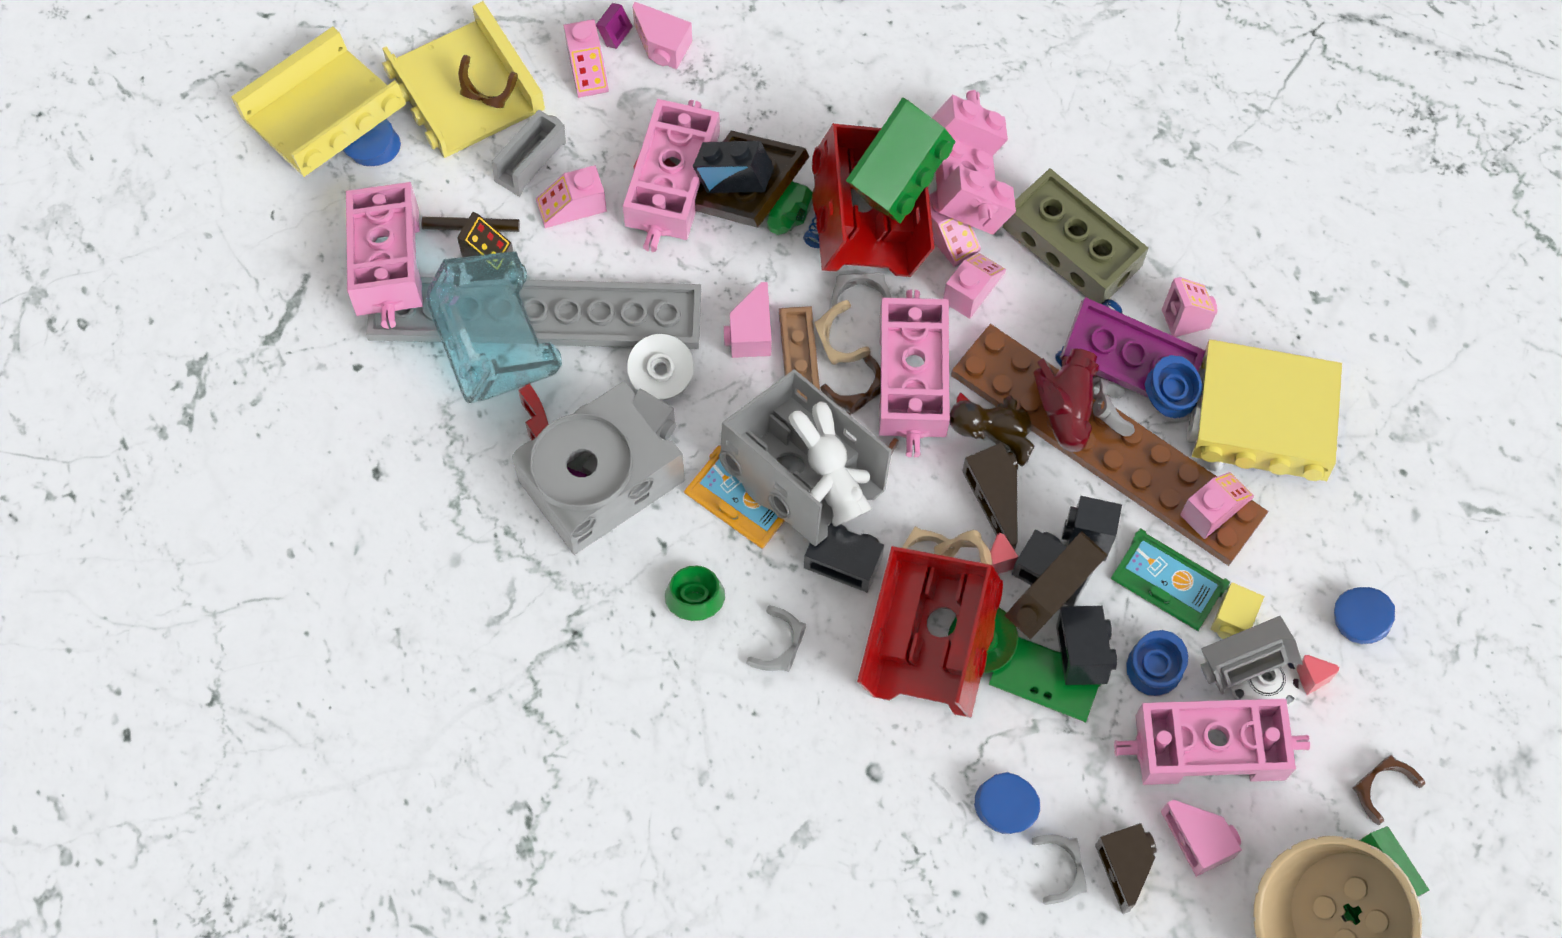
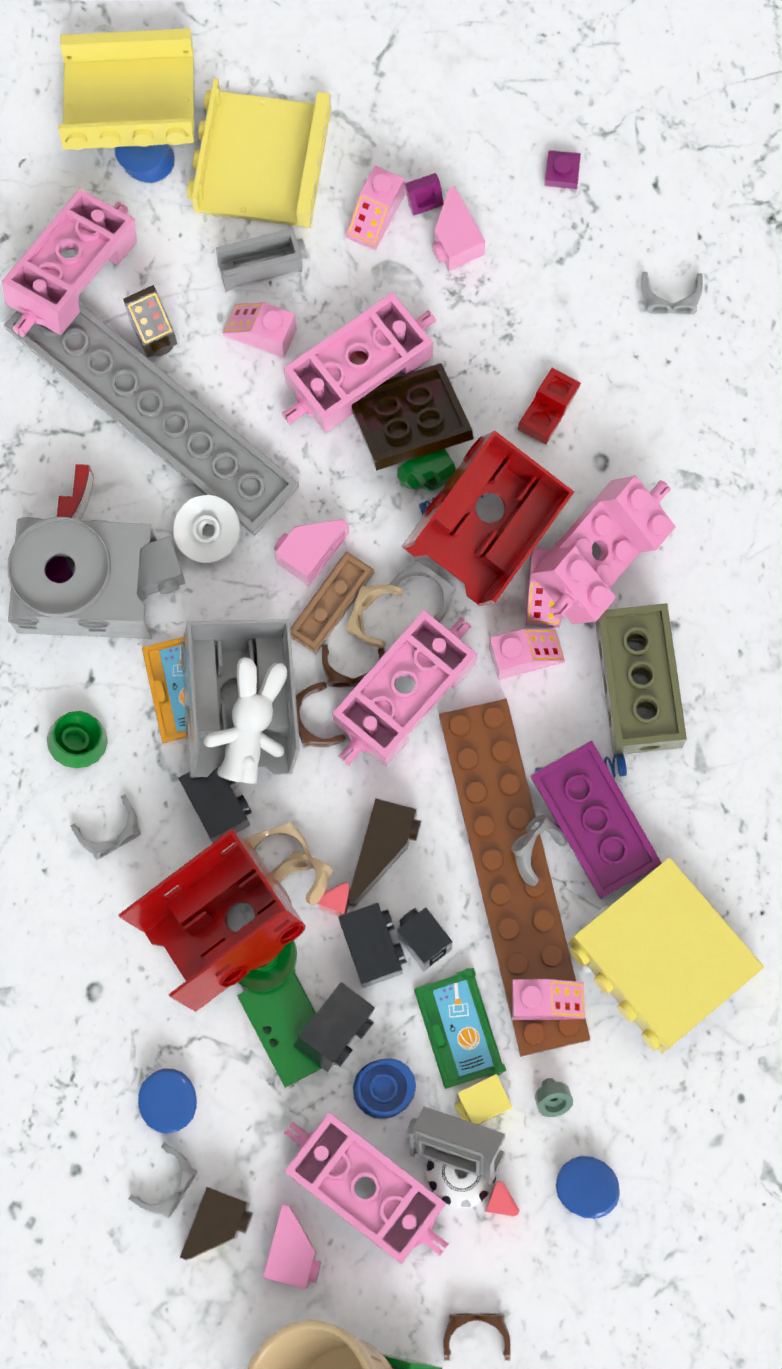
camera: 45 degrees right, 10 degrees up
(458, 223) = (165, 288): dark brown bar -> none
(469, 91) = (258, 163): reddish brown cap -> none
(487, 326) = (96, 393): clear light blue windscreen -> none
(733, 166) = (398, 402): black brick -> none
(833, 101) = (549, 406): none -> red slope
(901, 161) = (524, 506): slope -> none
(999, 424) = (434, 792): dark brown animal -> none
(1055, 585) = (344, 962): dark brown slope -> none
(1069, 397) = (499, 815): dark red animal -> none
(1174, 386) = (600, 874): blue piece -> none
(1188, 307) = (683, 816): bright pink slope -> none
(1282, 571) = (553, 1098): none -> sand green tile

